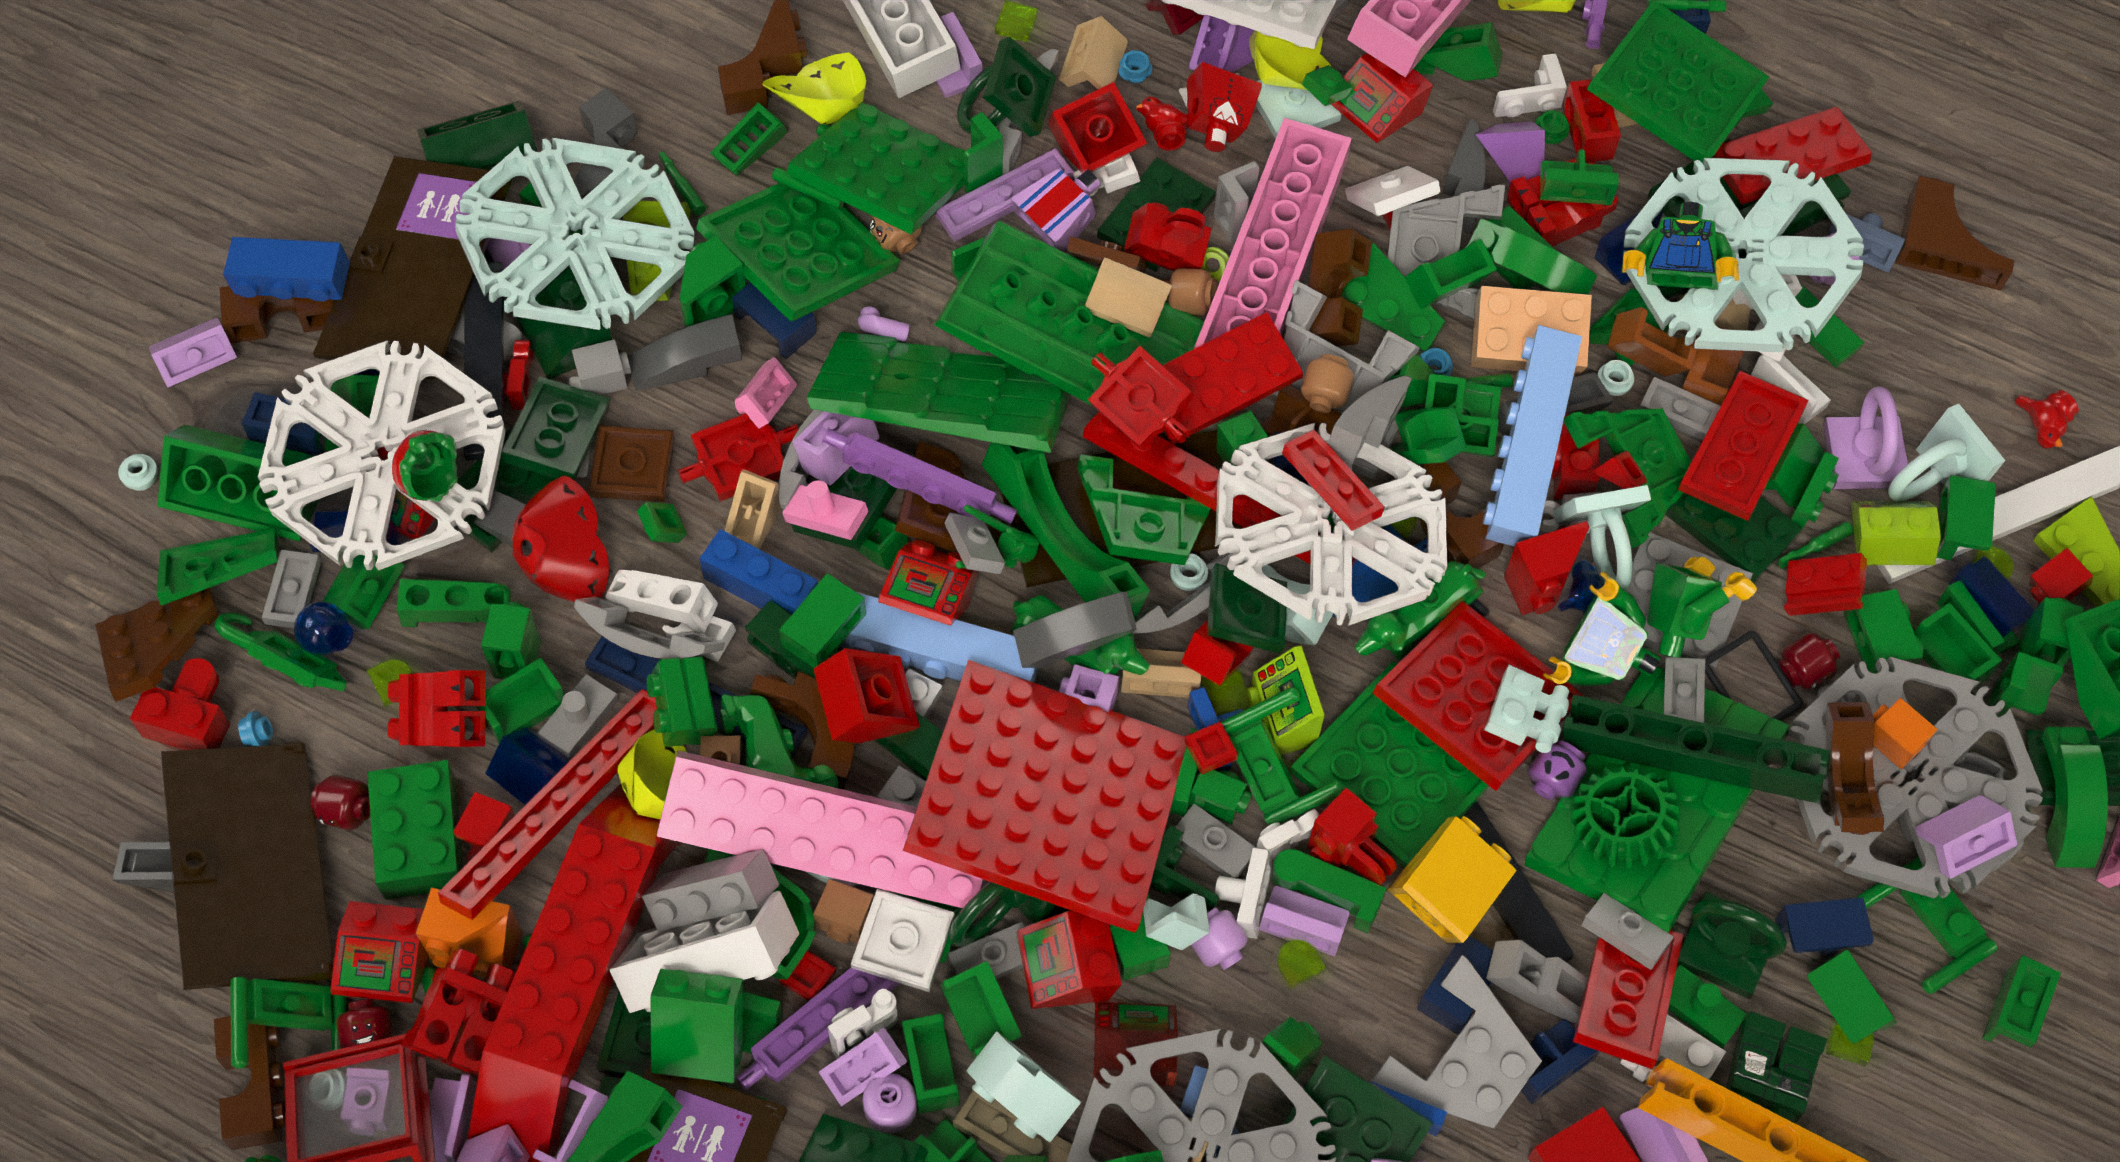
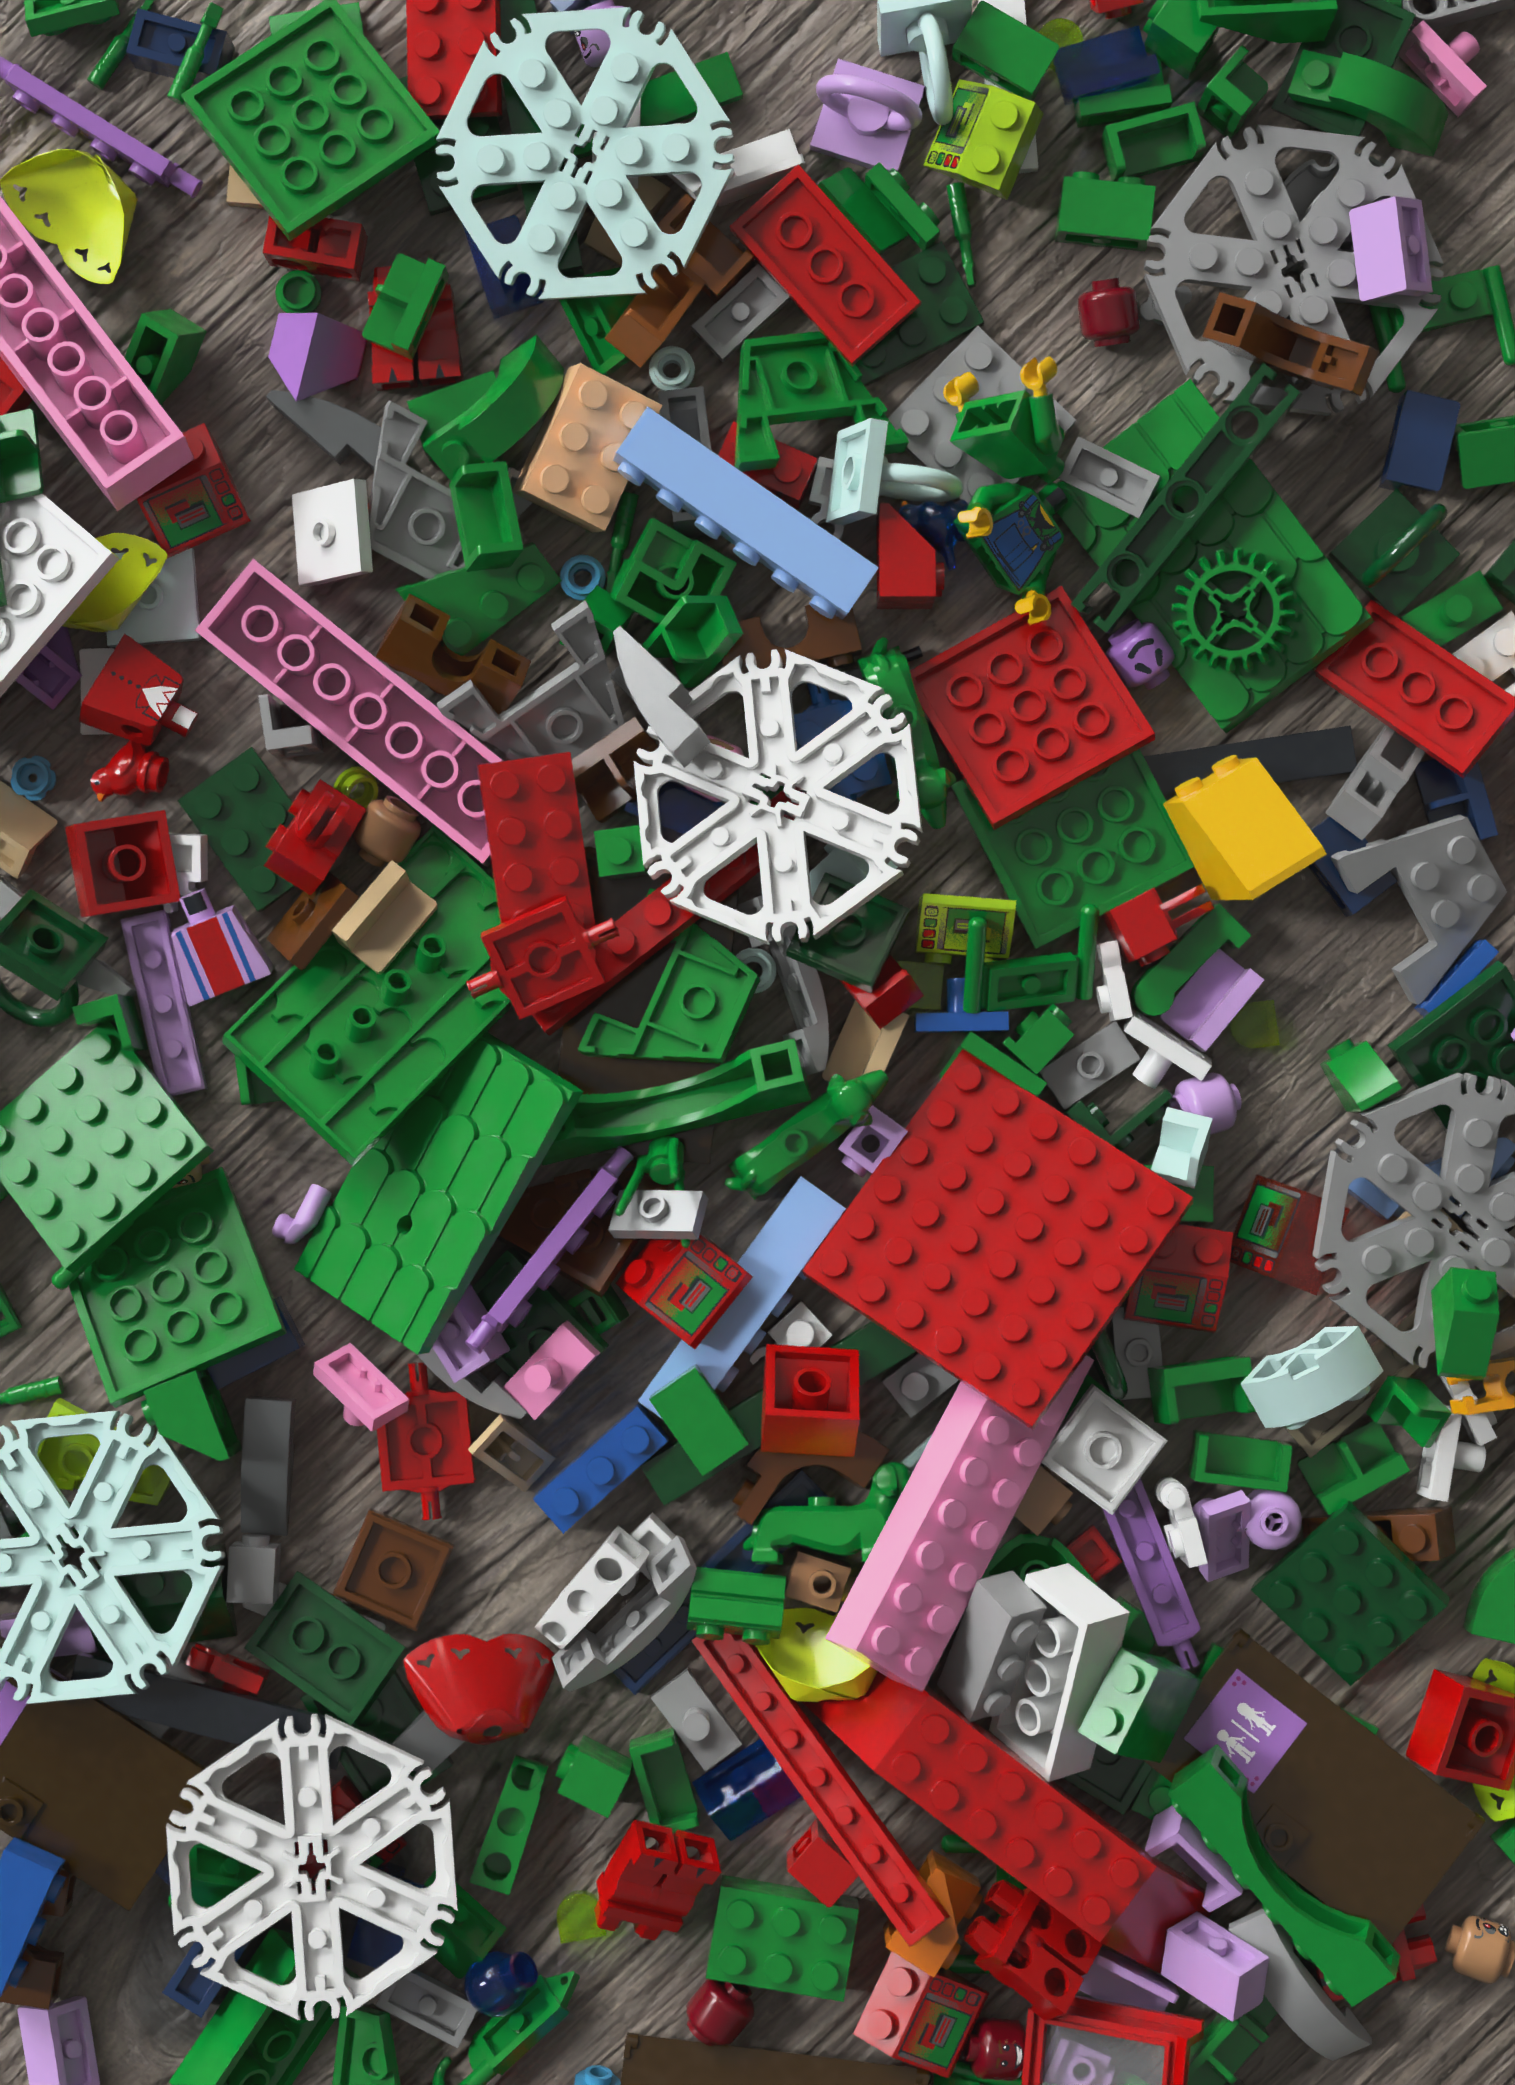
camera: 65 degrees left, 25 degrees up
(425, 465) = (364, 1827): green hair -> none
(661, 522) = (486, 1557): green plate -> none
(1074, 630) = (821, 1144): dark grey slope -> none
(1211, 747) = (995, 1034): red tile -> none
(1327, 85) = (160, 556): green plate -> none
(1327, 383) = (590, 727): medium nougat head -> none
(1333, 480) = (732, 777): red plate -> none
(1515, 706) = (1062, 674): light aqua plate -> none
(1543, 97) = (231, 269): white bracket -> none
(1622, 471) = (820, 429): red slope -> none
(1627, 931) = (1355, 662): light grey plate -> none
(1684, 252) = (575, 231): torso -> none
(1770, 659) = (1096, 353): black piece -> none
(1825, 584) = (1026, 251): red plate -> none
(1901, 732) = (1257, 268): orange brick -> none

